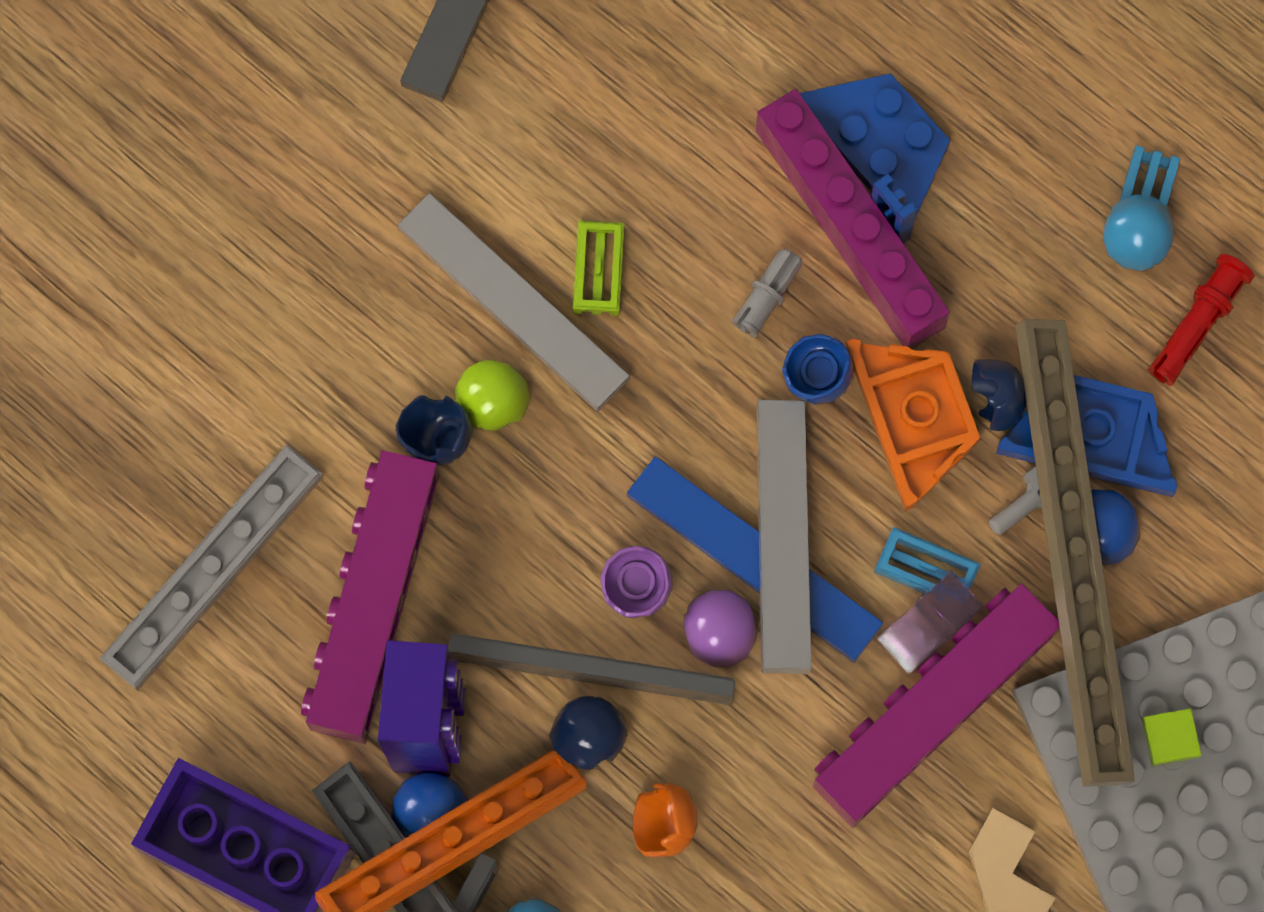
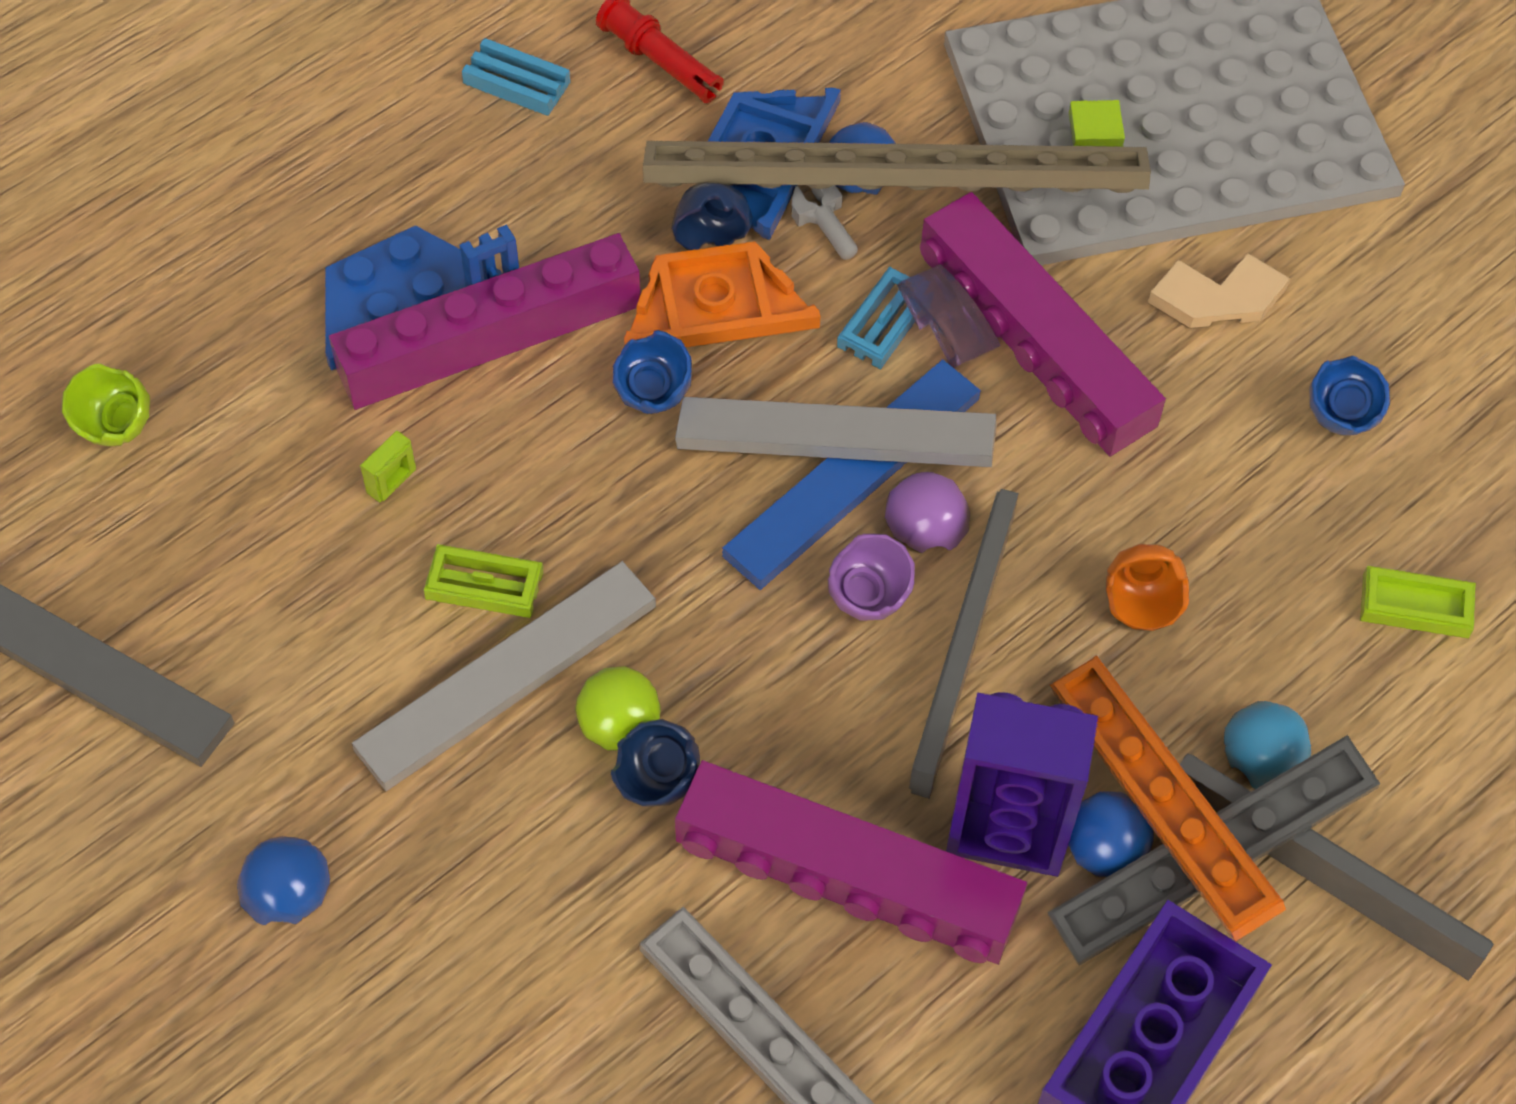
camera: 85 degrees left, 15 degrees down
(307, 168) = (283, 880): none -> blue hair
(588, 732) = (1037, 651): dark blue hair -> none
(689, 168) = (388, 467): none -> lime tile
(767, 292) = (551, 414): light grey axle -> none
(1138, 232) = (559, 78): dark azure hair -> none

